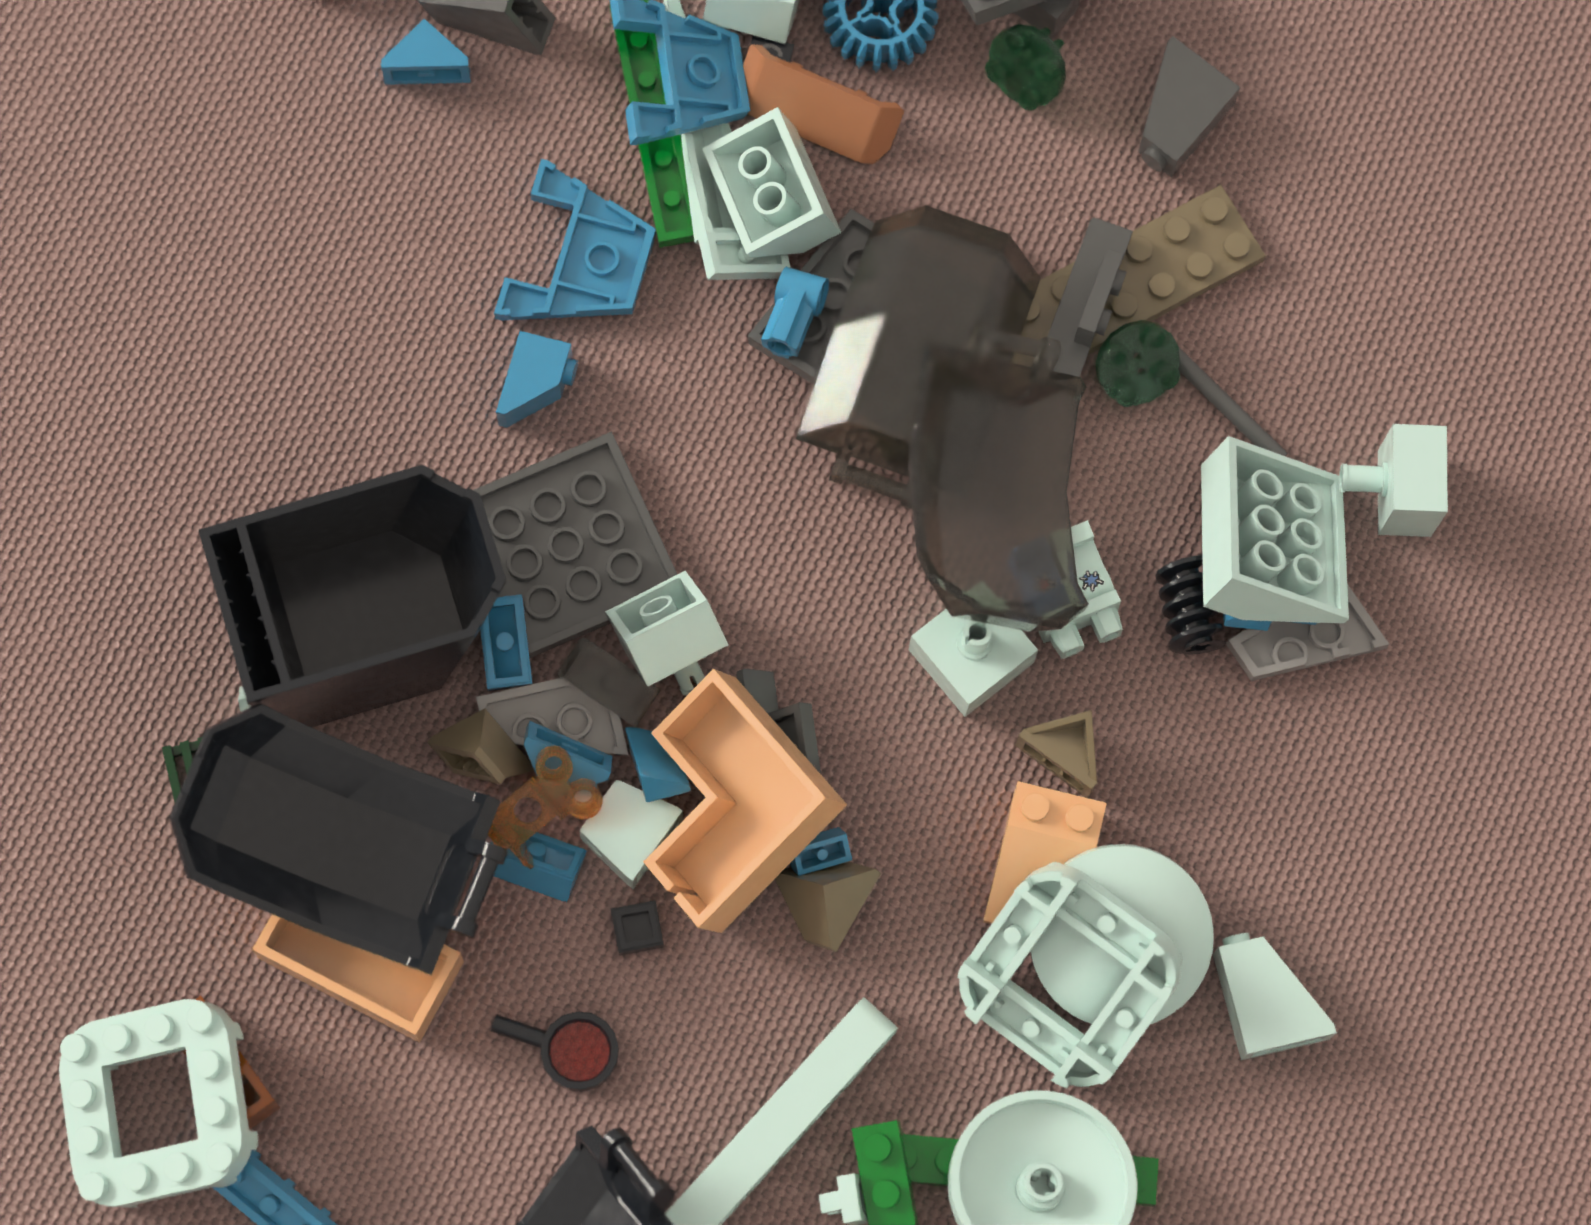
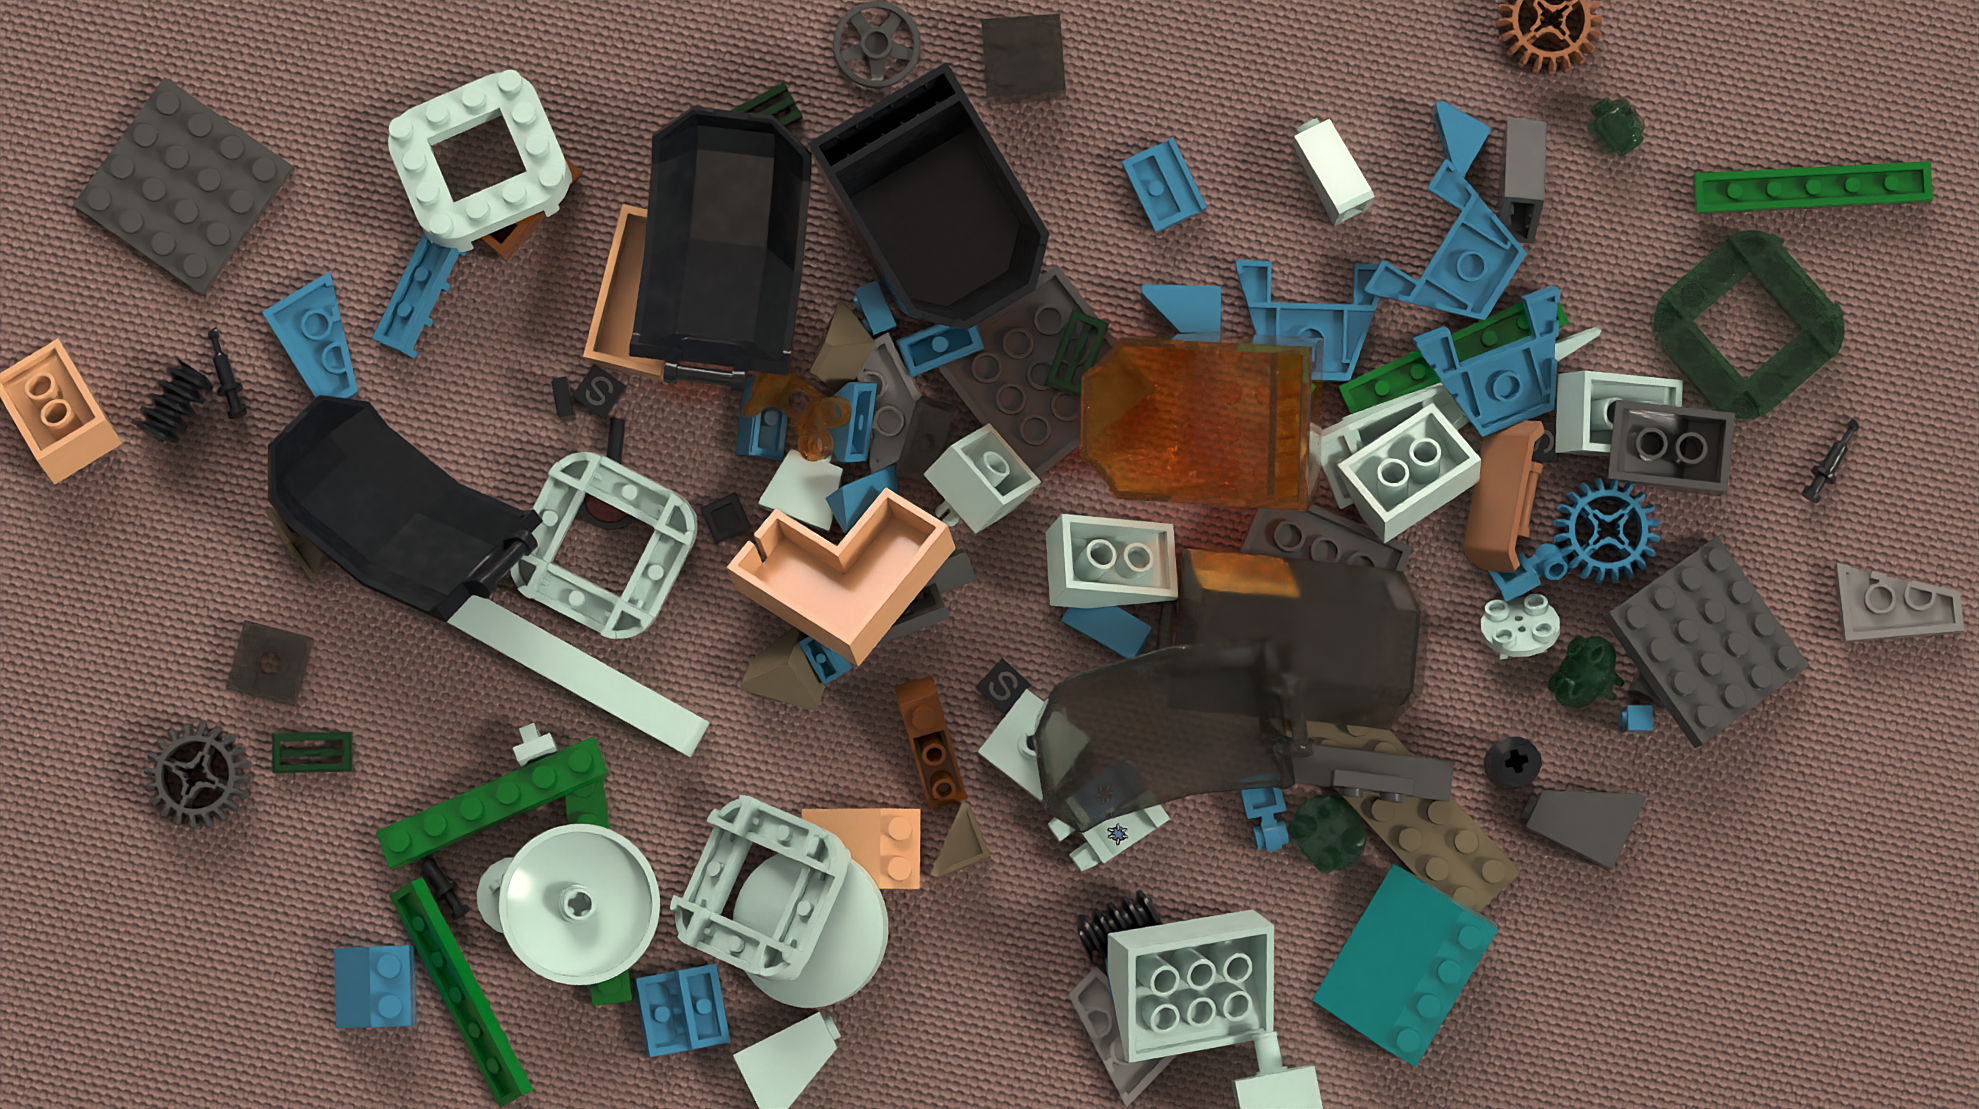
camera: 80 degrees right, 10 degrees up
(148, 640) = (876, 45): none -> dark grey wheel
(209, 478) = (1023, 59): none -> clear smoke brick
(391, 370) = (1163, 185): none -> dark azure plate
(425, 190) = (1332, 171): none -> light aqua slope
(443, 708) = (875, 309): none -> dark azure piece
(456, 1075) = (563, 399): none -> black tile
(457, 1035) = (599, 391): none -> black tile
(562, 74) = (1469, 264): none -> dark azure wing
(584, 521) = (1088, 321): none -> dark green tile
(672, 349) = (1207, 419): none -> clear orange windscreen
(679, 1016) = (657, 569): none -> light aqua plate
(791, 520) = (1110, 562): none -> light aqua slope
(796, 300) = (1309, 526): dark azure piece -> none
(857, 542) = (1110, 628): none -> dark azure slope
(897, 669) = (1003, 686): none -> black tile
(899, 81) = (1544, 562): none -> dark azure plate
(940, 760) = (930, 742): none -> dark orange slope
(962, 119) = (1520, 626): none -> light aqua plate
(1086, 30) = (1636, 718): none -> dark azure piece
(1107, 157) = (1511, 777): none -> black piece
(1122, 427) = (1263, 804): none -> dark azure plate
(1180, 1106) = (681, 1010): none -> dark azure slope
(1227, 405) = (1316, 920): dark grey bar -> none
(1297, 318) = (1405, 964): none -> teal slope

